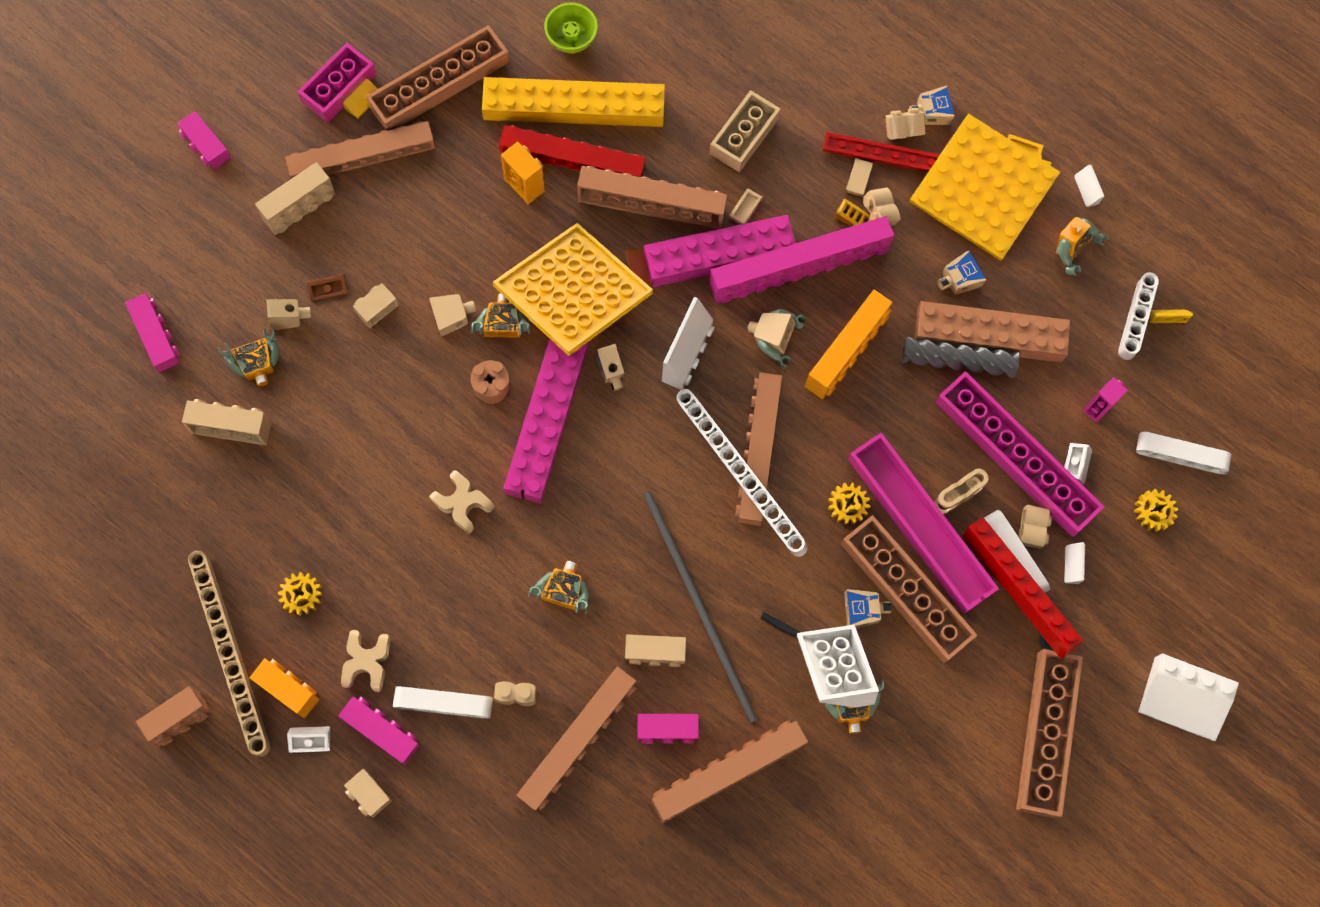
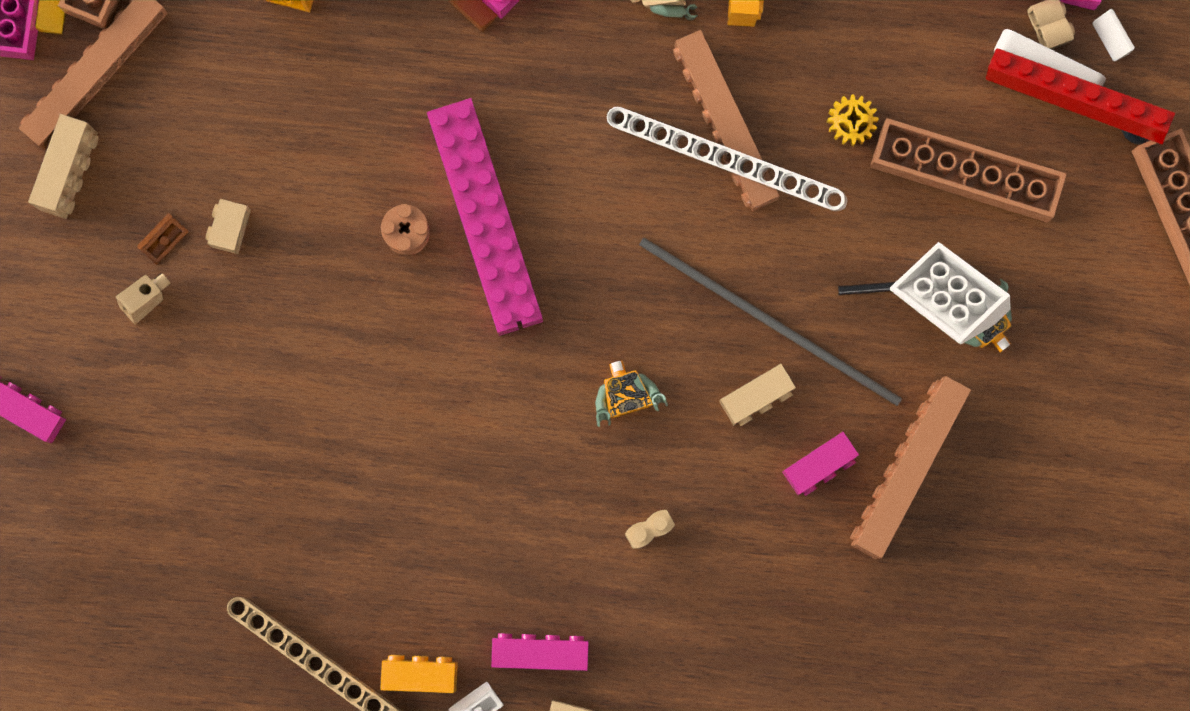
camera: 30 degrees left, 10 degrees up
(226, 422) = (165, 450): tan brick -> none
(254, 359) = (143, 365): torso -> none
(297, 601) = (367, 584): yellow gear -> none
(365, 661) = (478, 595): tan piece -> none
(442, 702) = (583, 585): white beam -> none
(450, 312) = (312, 183): tan torso -> none
(461, 502) = (462, 373): tan piece -> none
(501, 320) = (371, 156): torso -> none
(572, 288) = (424, 76): yellow plate -> none
(576, 739) = (739, 533): nougat brick -> none
(609, 359) = (509, 131): tan torso -> none
(687, 346) = (584, 61): white slope -> none
(864, 608) = (935, 218): torso -> none
(922, 523) = (939, 93): dark pink piece -> none
(961, 491) = (957, 36): tan piece -> none

